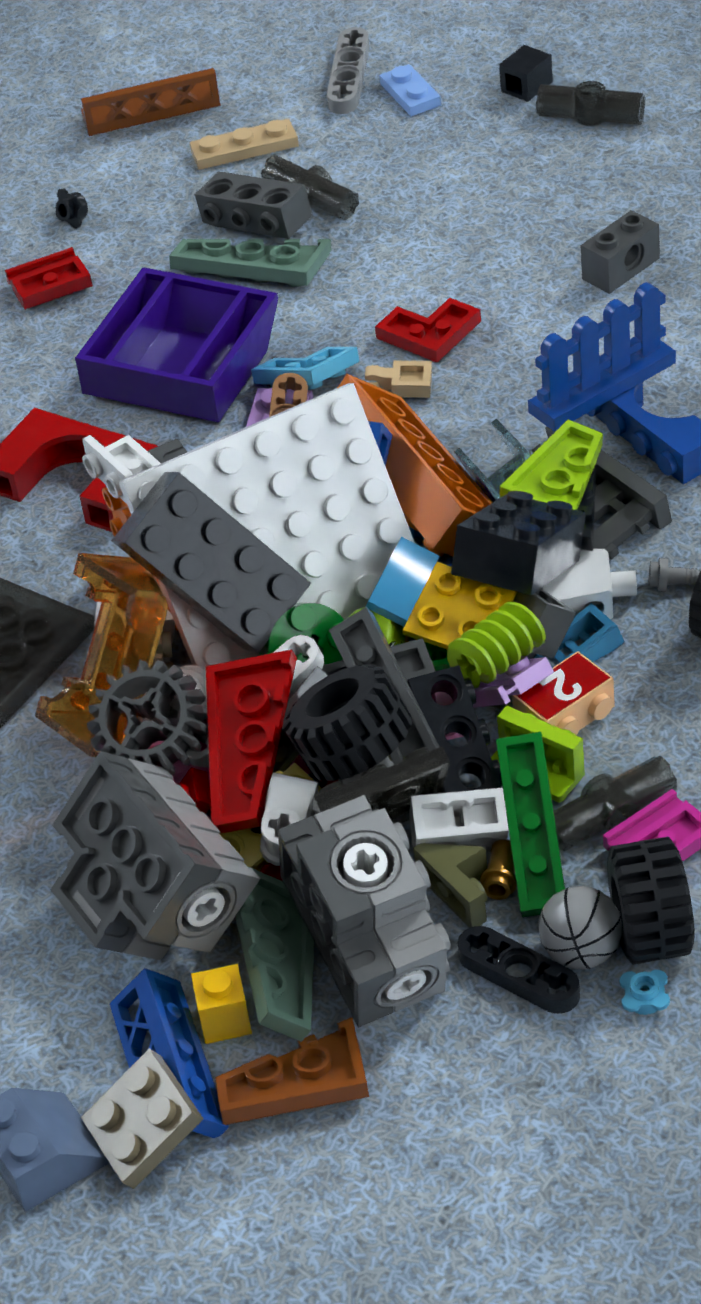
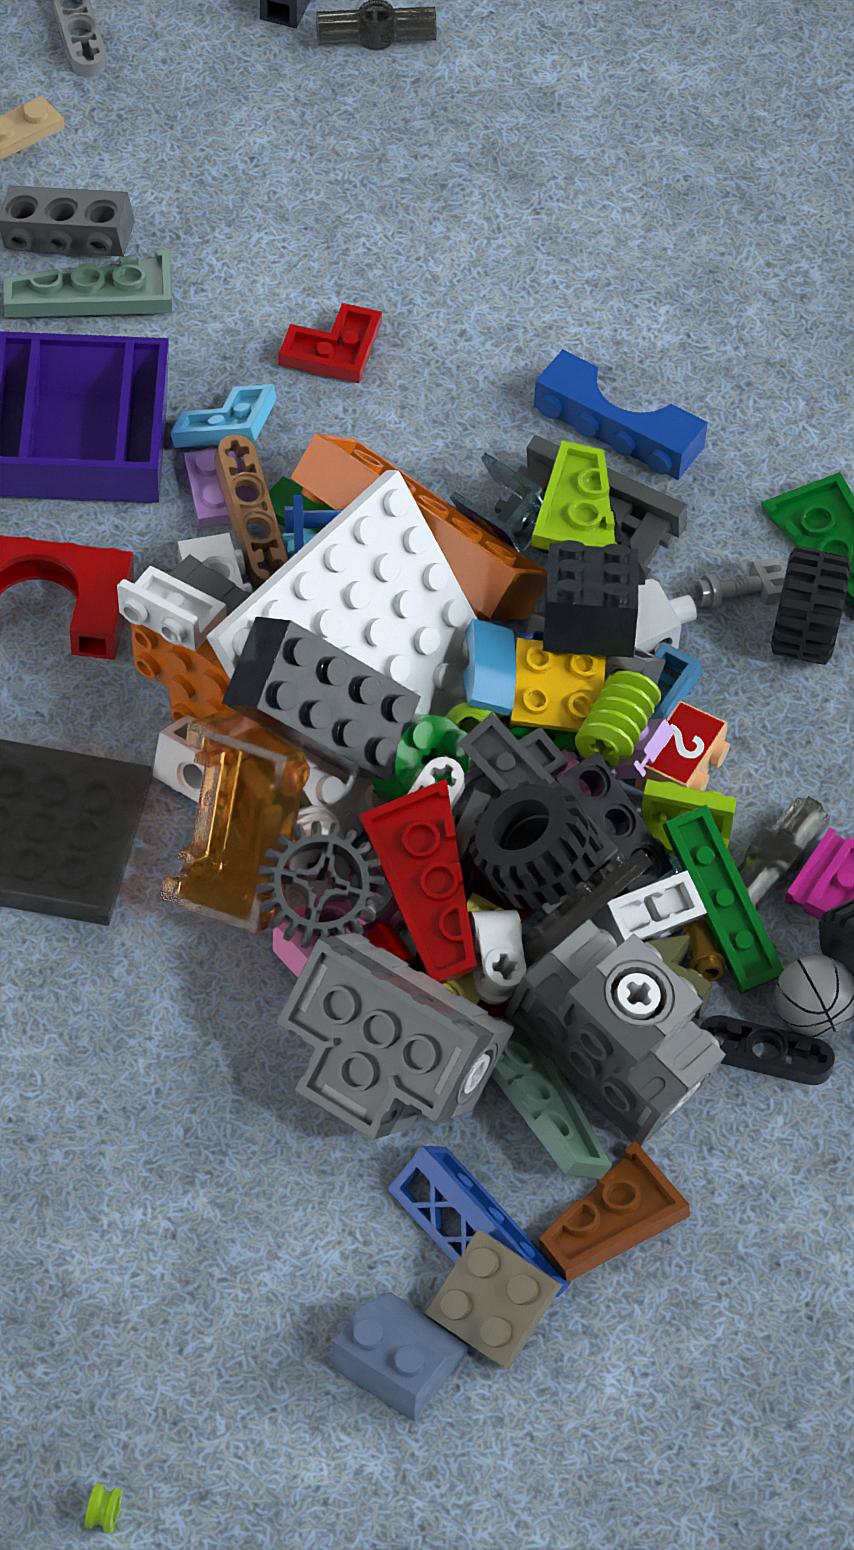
camera: 30 degrees left, 10 degrees up
(221, 1003) = (508, 1161): yellow brick -> none
(319, 186) = (145, 193): clear smoke piece -> none
(404, 379) = (339, 409): tan plate -> none
(410, 90) = (159, 34): light blue plate -> none
(606, 376) = (568, 369): blue fence -> none
(620, 251) = (497, 213): dark grey brick -> none

